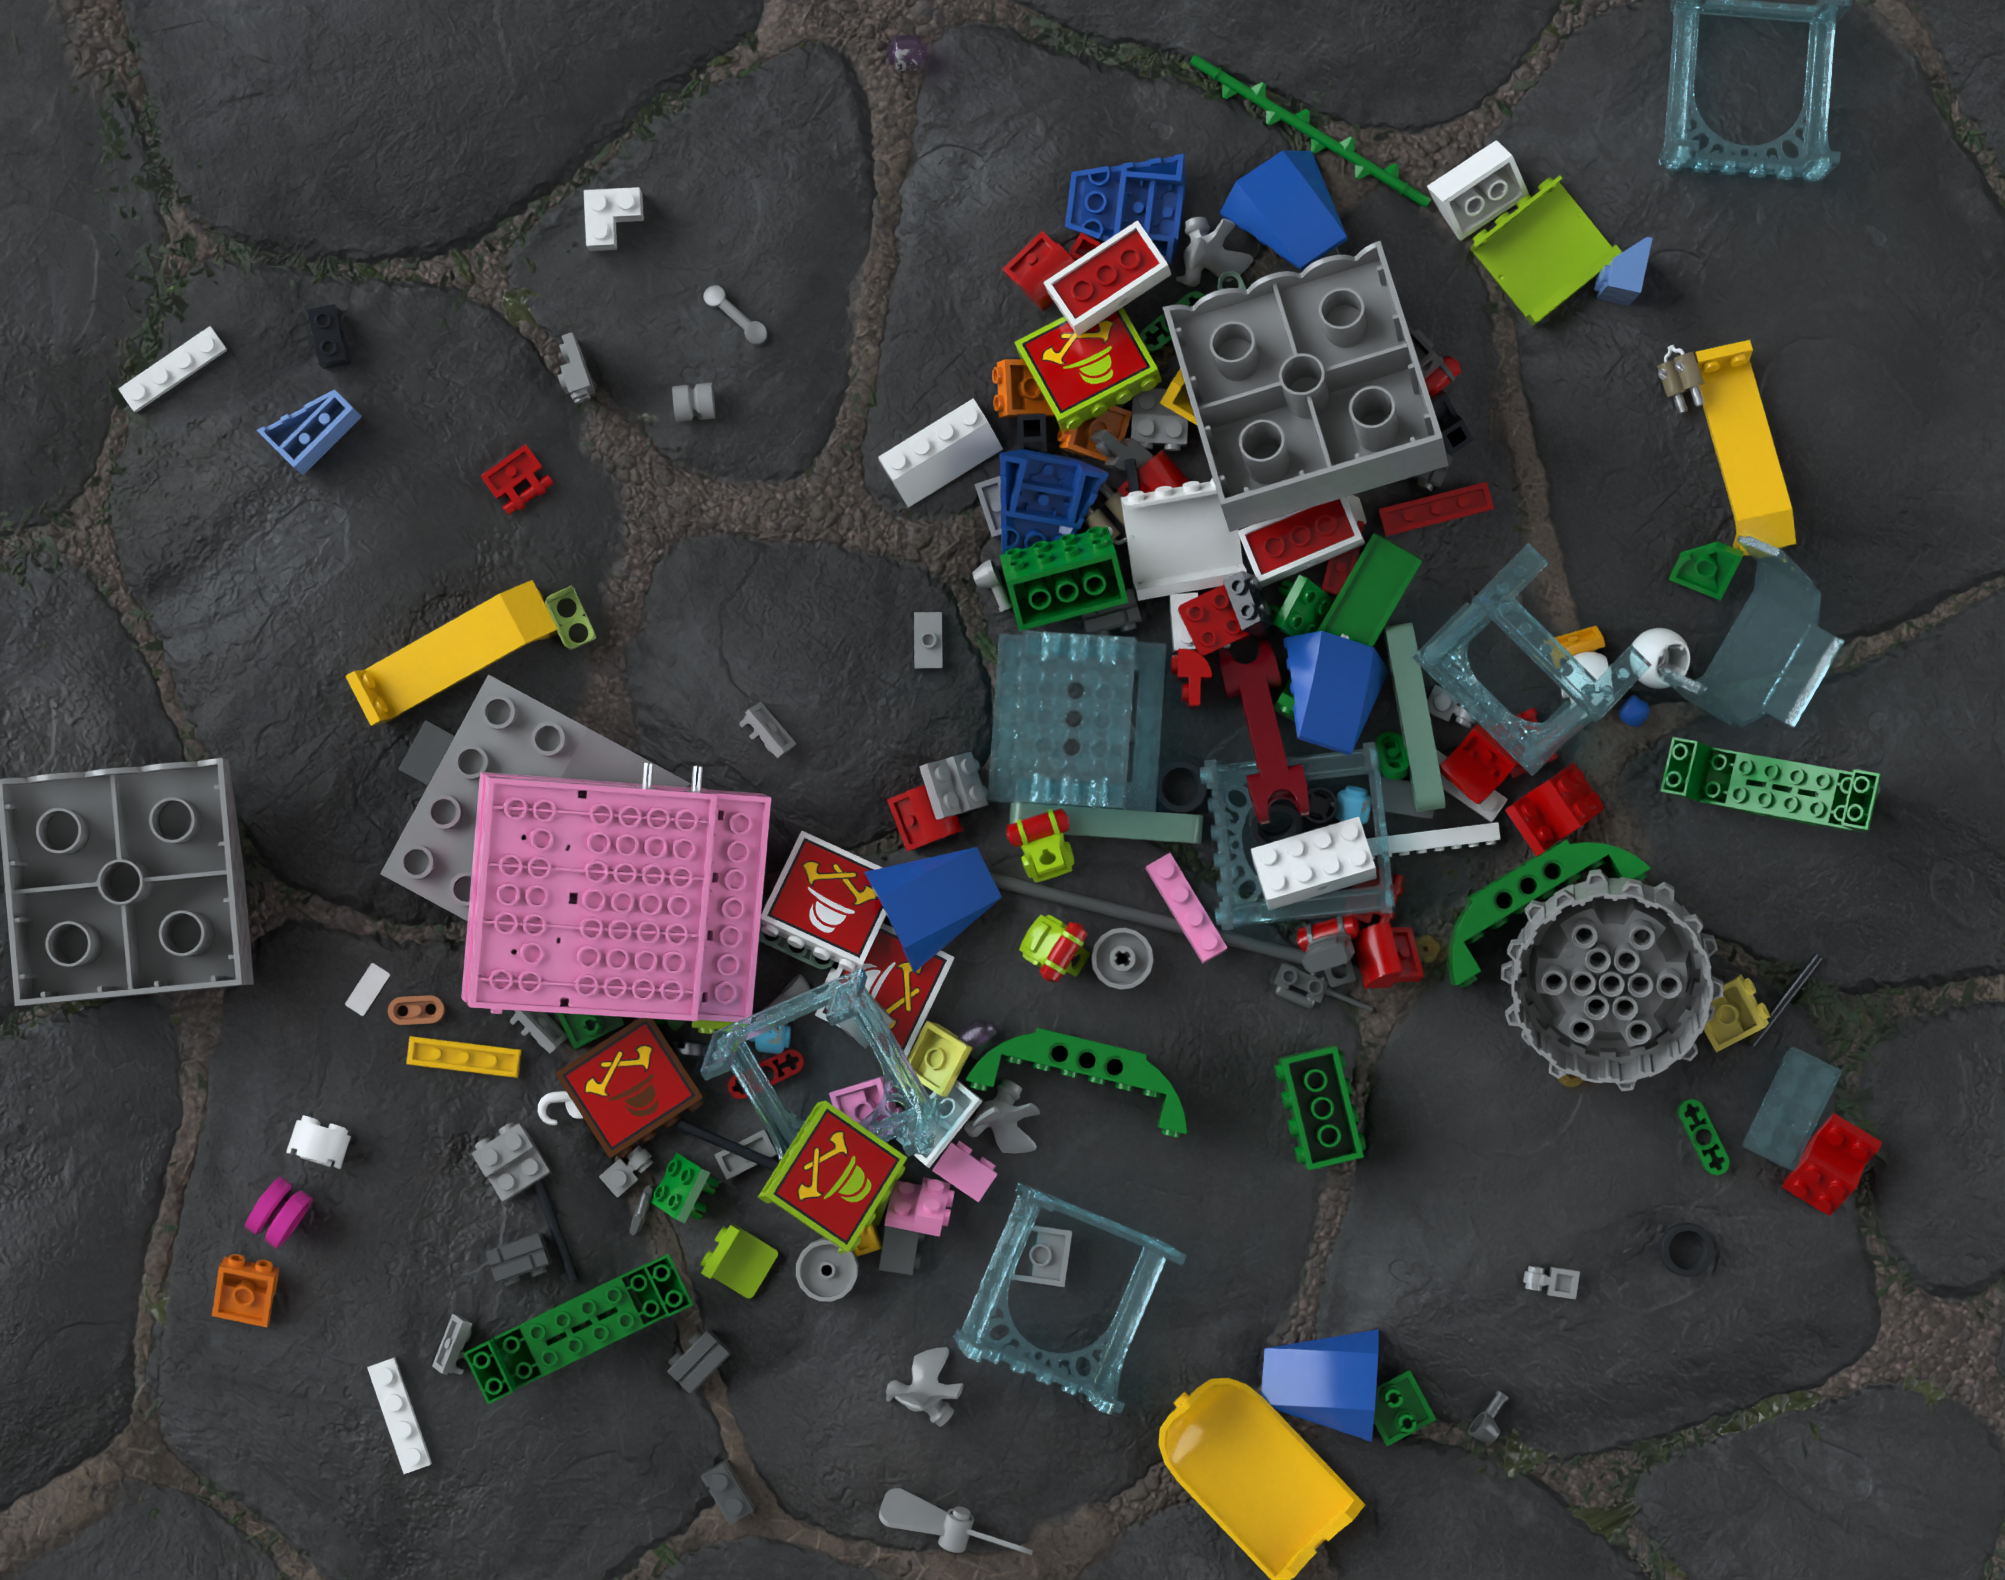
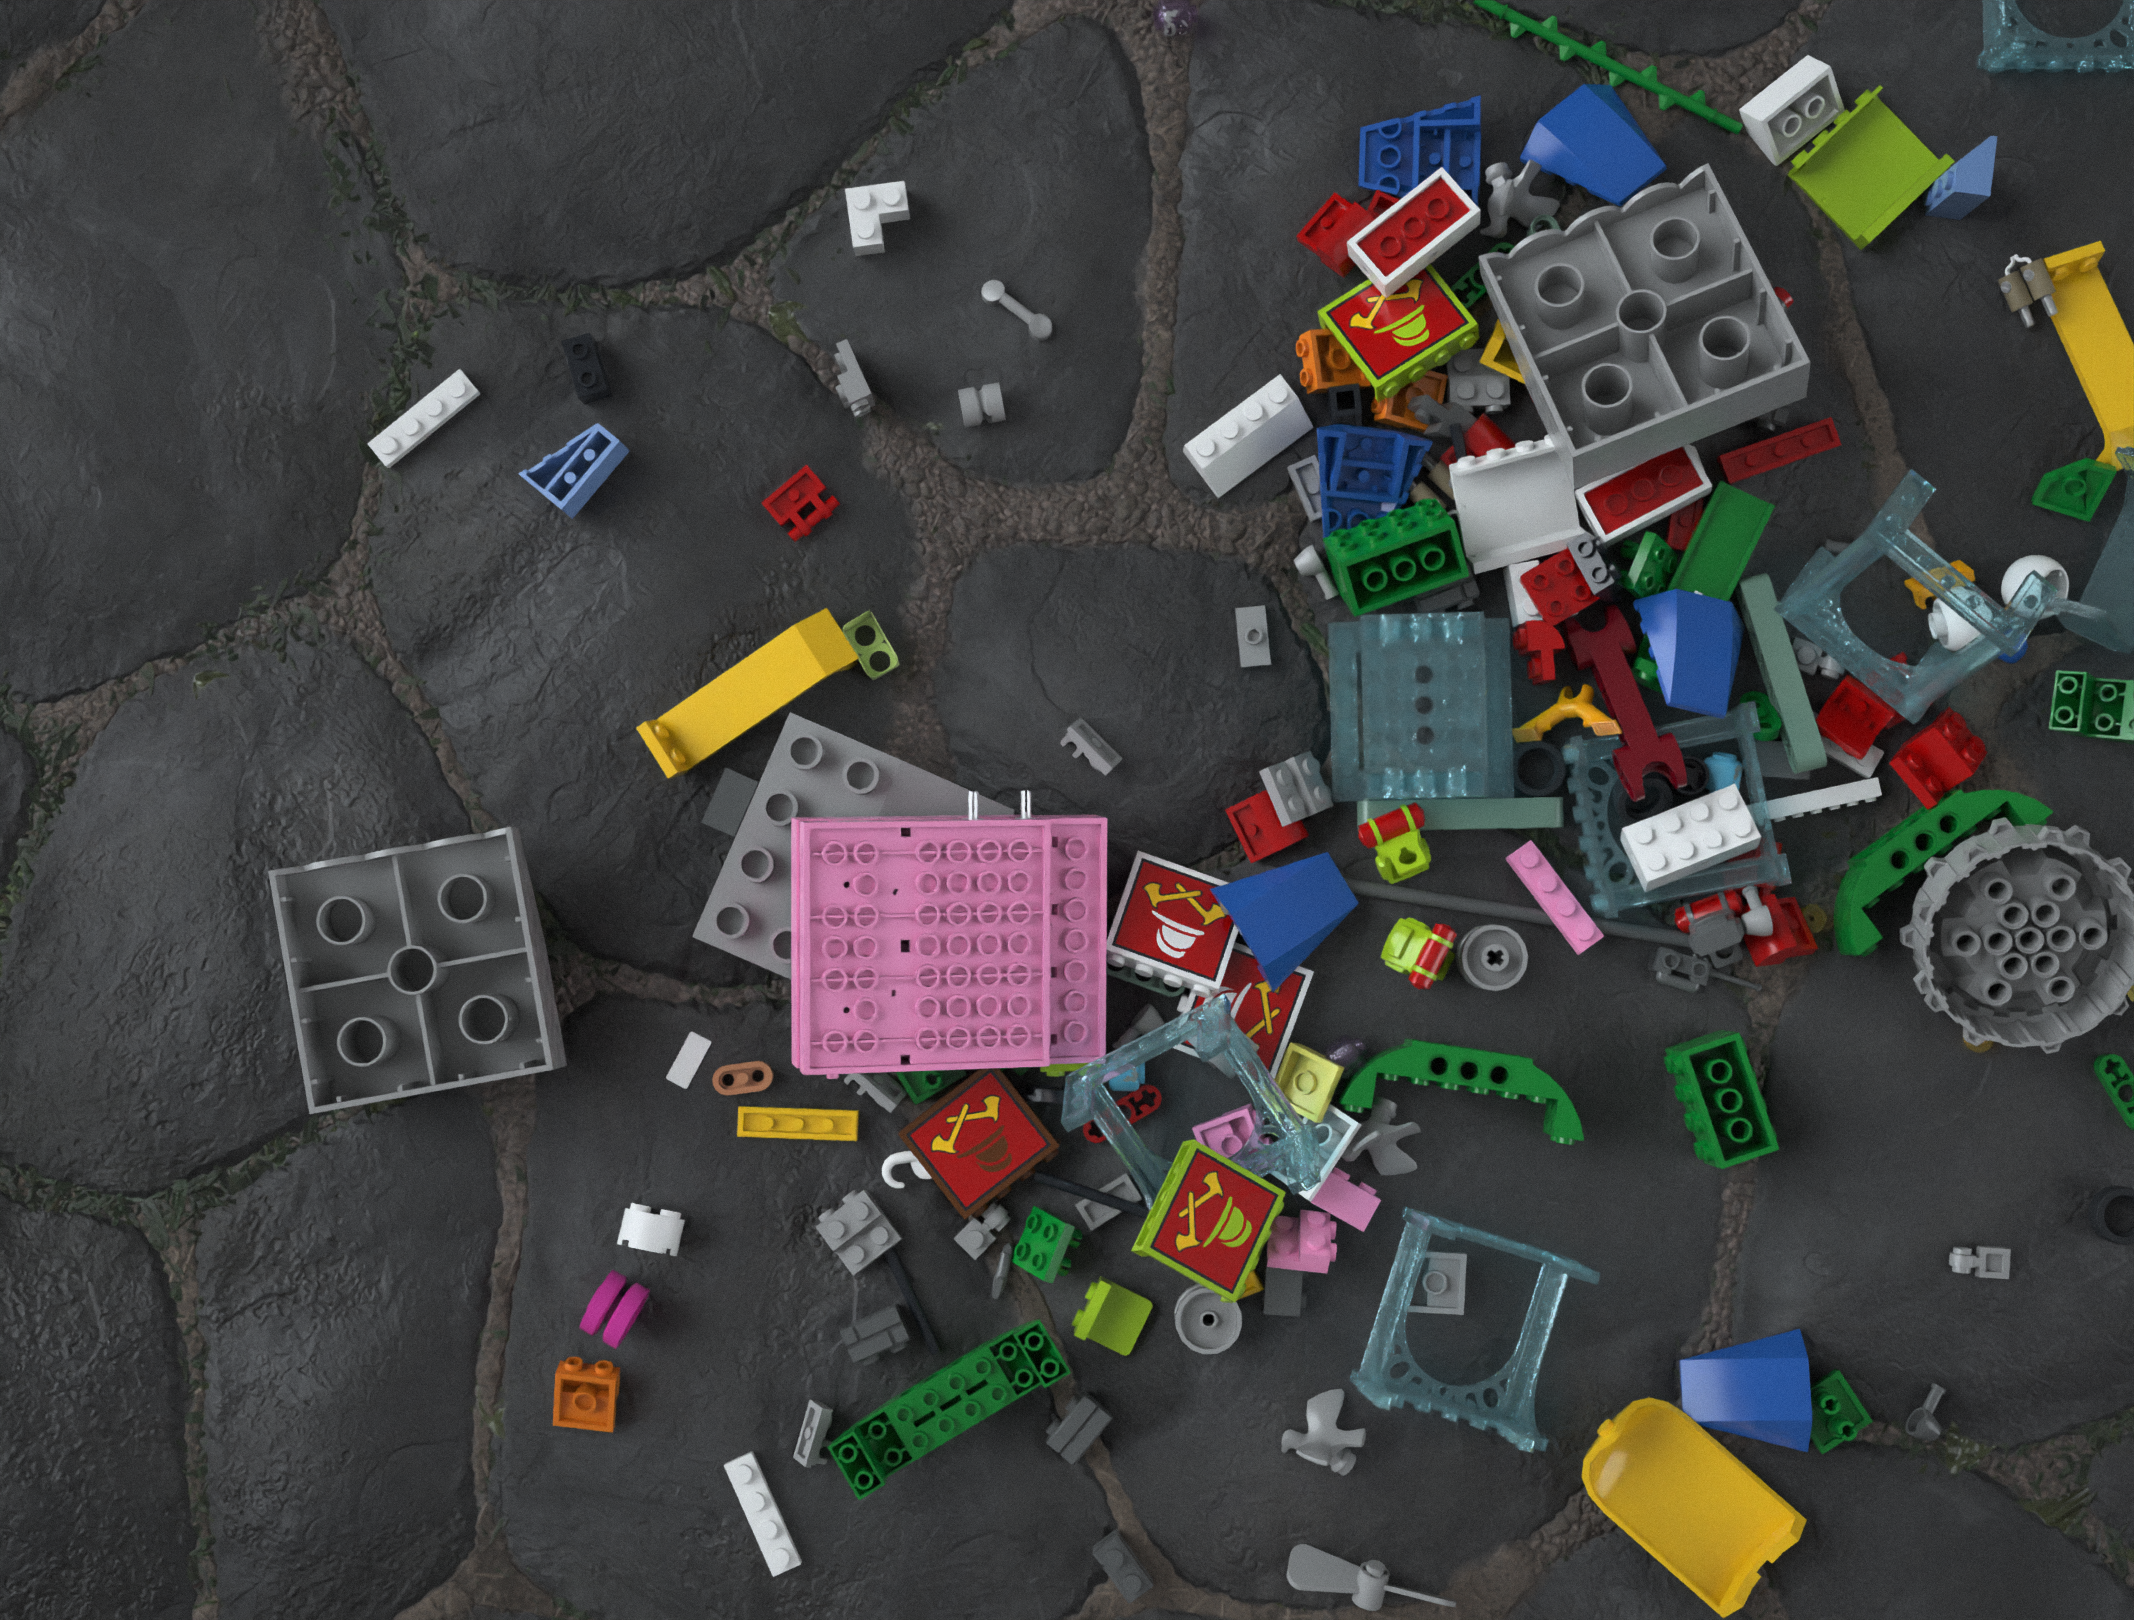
camera: 10 degrees left, 0 degrees up
(1214, 731) = (1568, 708): none -> light orange piece
(1366, 945) = (1758, 919): none -> light grey bar

